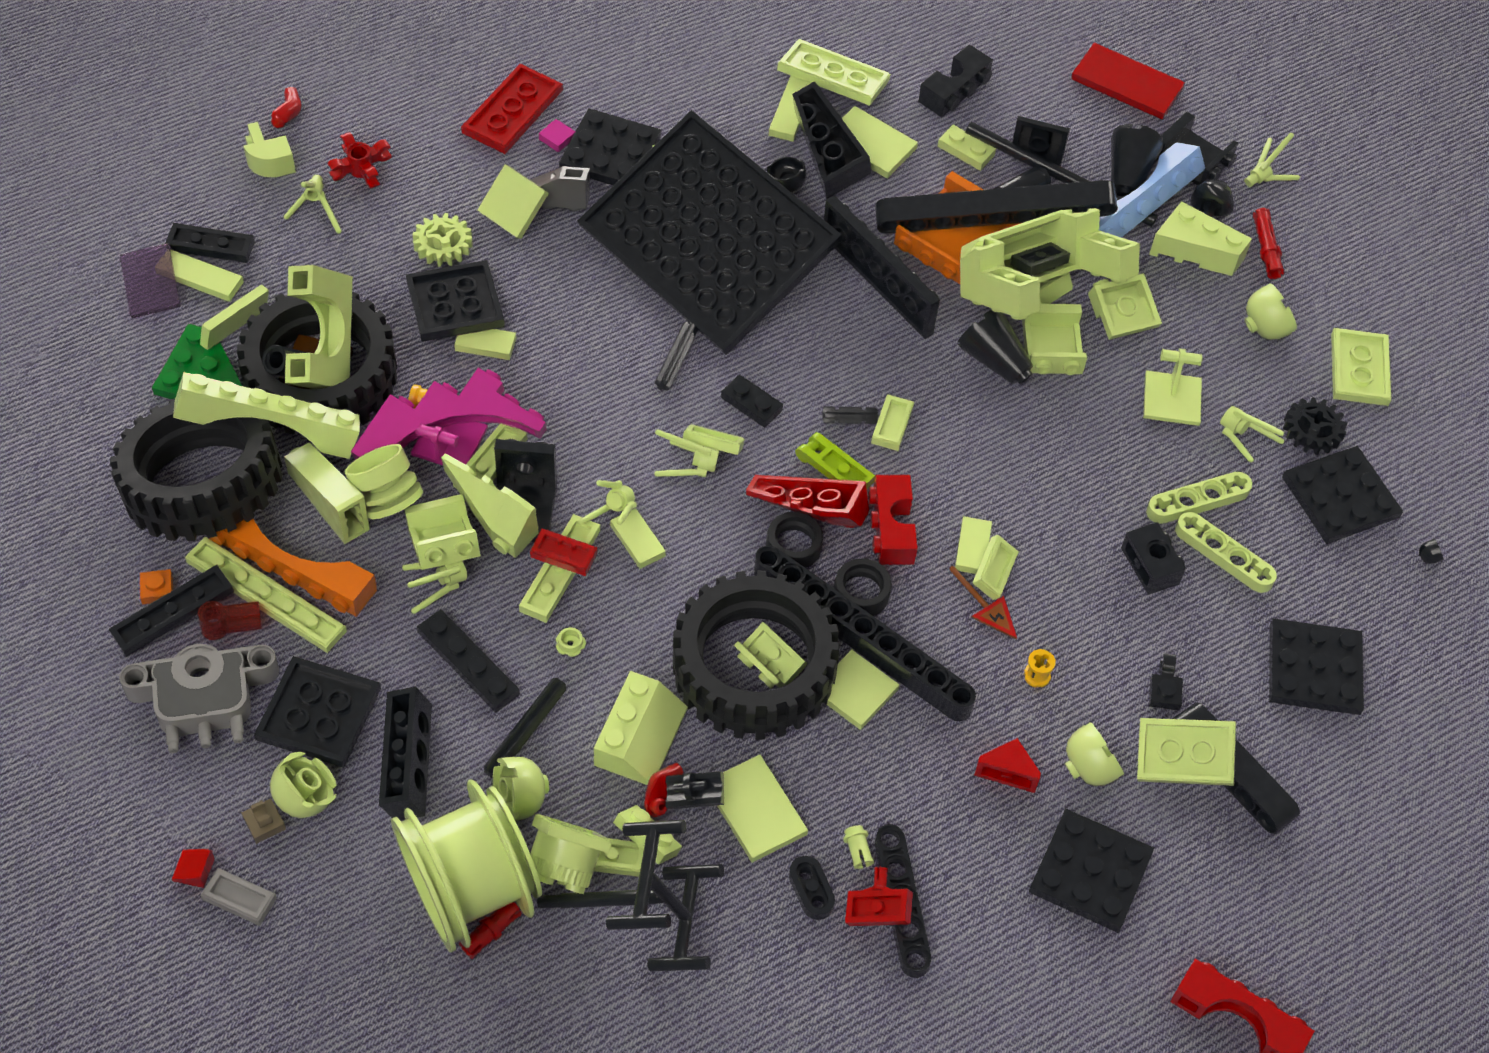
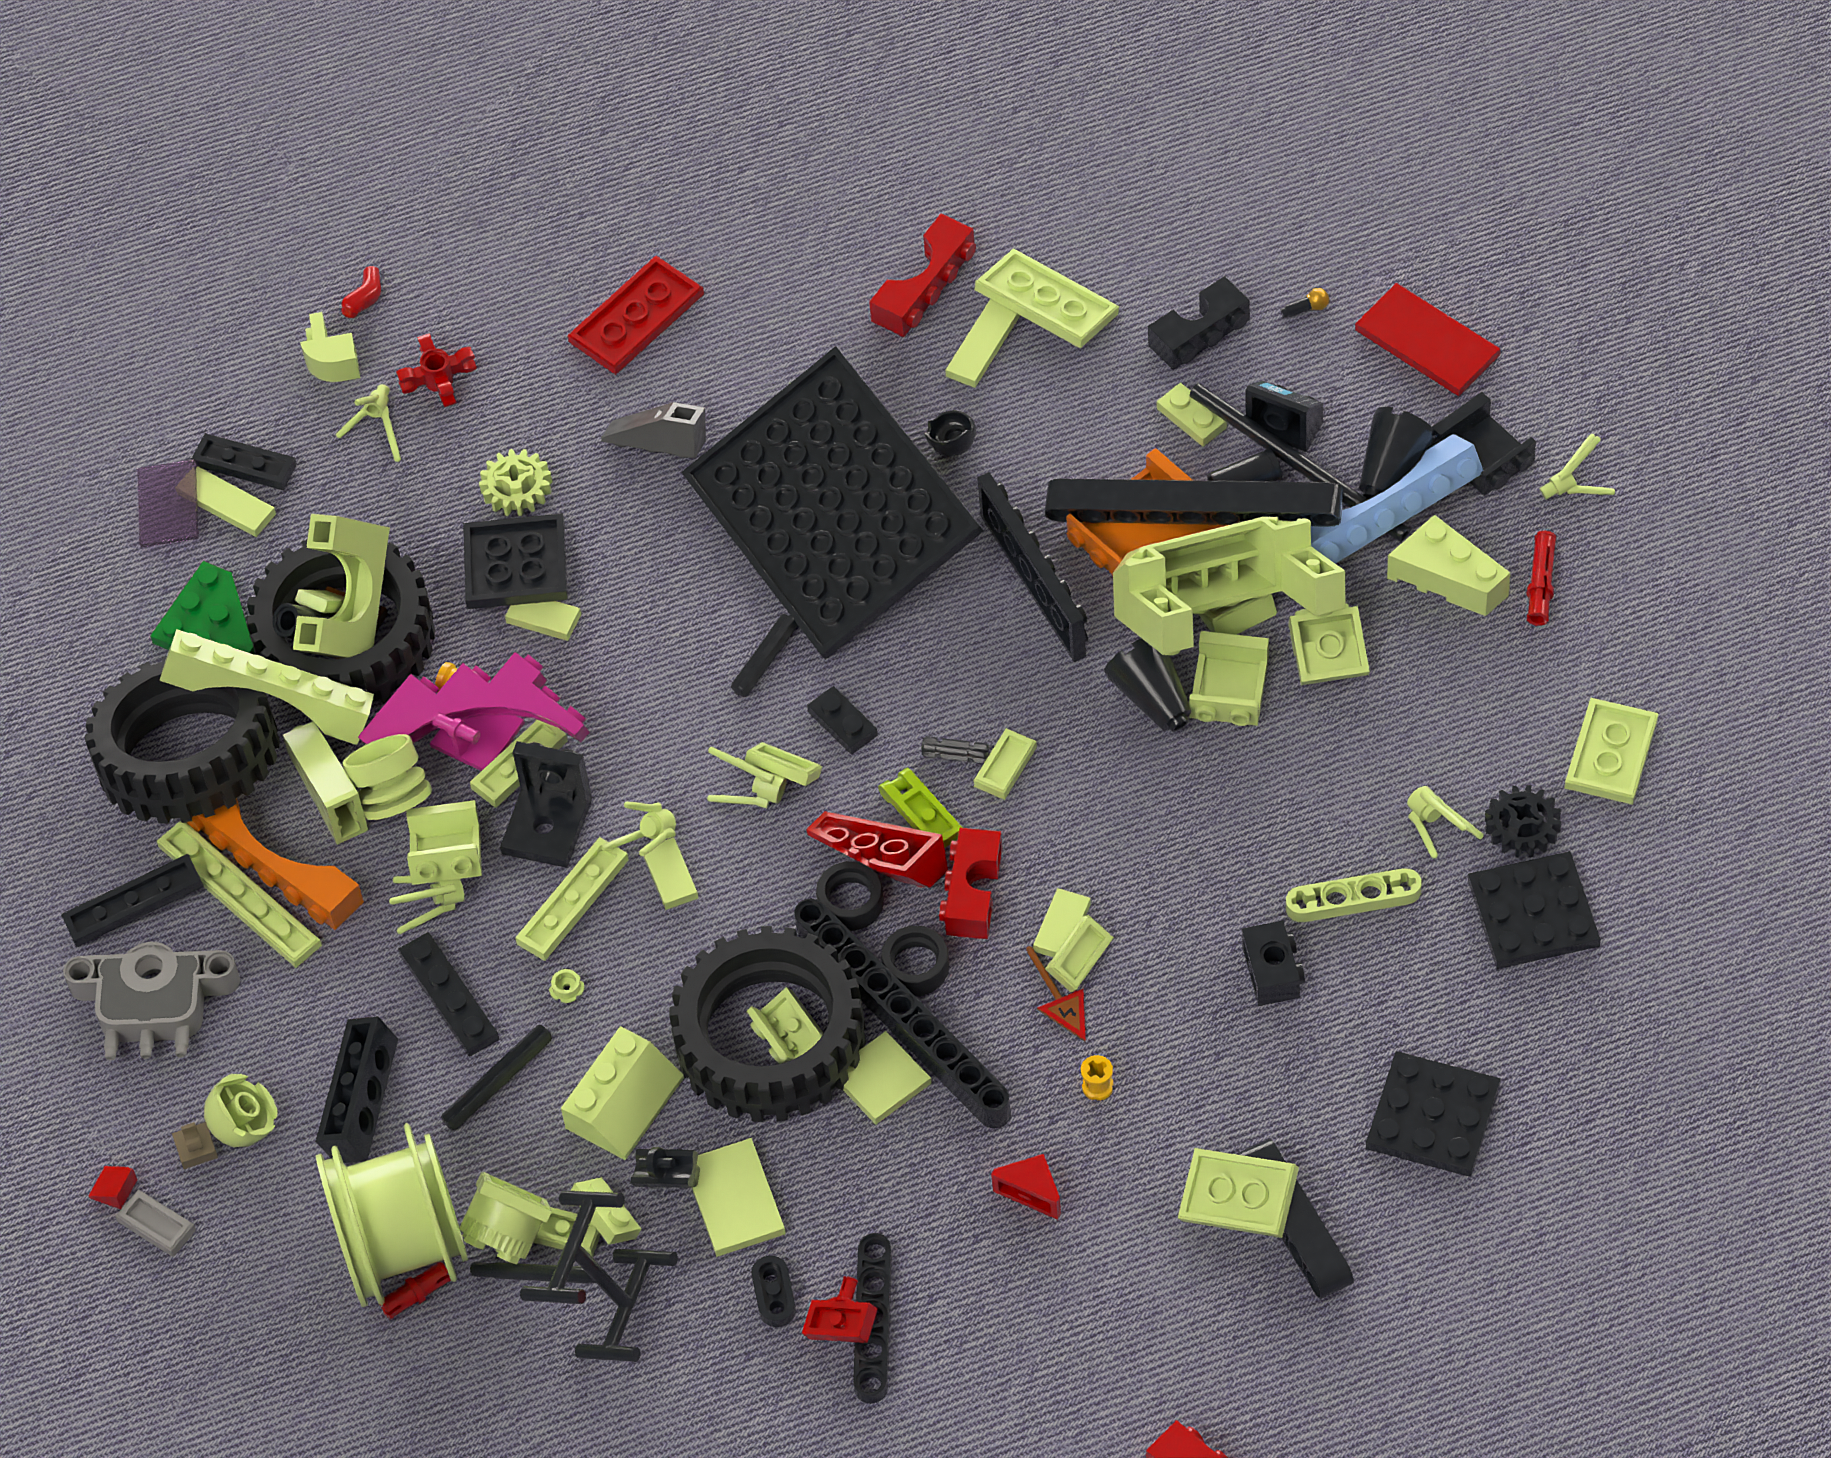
camera: 20 degrees right, 0 degrees up
(155, 585) = (119, 869): orange plate -> none
(230, 618) = (195, 916): clear red piece -> none
(233, 317) = (254, 559): yellowish green tile -> none
(298, 343) = (320, 600): none -> yellowish green tile
(317, 711) = (272, 1032): black plate -> none
(503, 513) = (516, 832): yellowish green wedge -> none
(513, 201) = (607, 441): yellowish green tile -> none
(520, 785) = (474, 1141): yellowish green cylinder -> none
(556, 135) = (682, 356): dark pink tile -> none
(563, 552) = (576, 881): red plate -> none
(608, 145) = (740, 375): black plate -> none
(657, 790) = (626, 1163): red arm -> none
(724, 82) = (902, 302): none -> red arch
(832, 145) = (1011, 403): black wedge -> none
(858, 845) = (836, 1247): yellowish green pin -> none
(882, 143) = (1071, 397): yellowish green tile -> none
(1036, 59) = (1315, 300): none -> piece
(1040, 259) = (1226, 577): black plate -> none
(1091, 757) = (1127, 1186): yellowish green cylinder -> none
(1091, 870) = (1096, 1312): black plate -> none
(1165, 688) = (1244, 1118): black plate -> none
(1173, 395) = (1355, 763): yellowish green plate -> none
(1213, 198) = (1483, 512): black piece -> none
(1228, 548) = (1361, 967): yellowish green beam -> none
(1268, 314) = (1506, 673): yellowish green cylinder -> none
(1430, 552) = (1619, 992): black hinge -> none

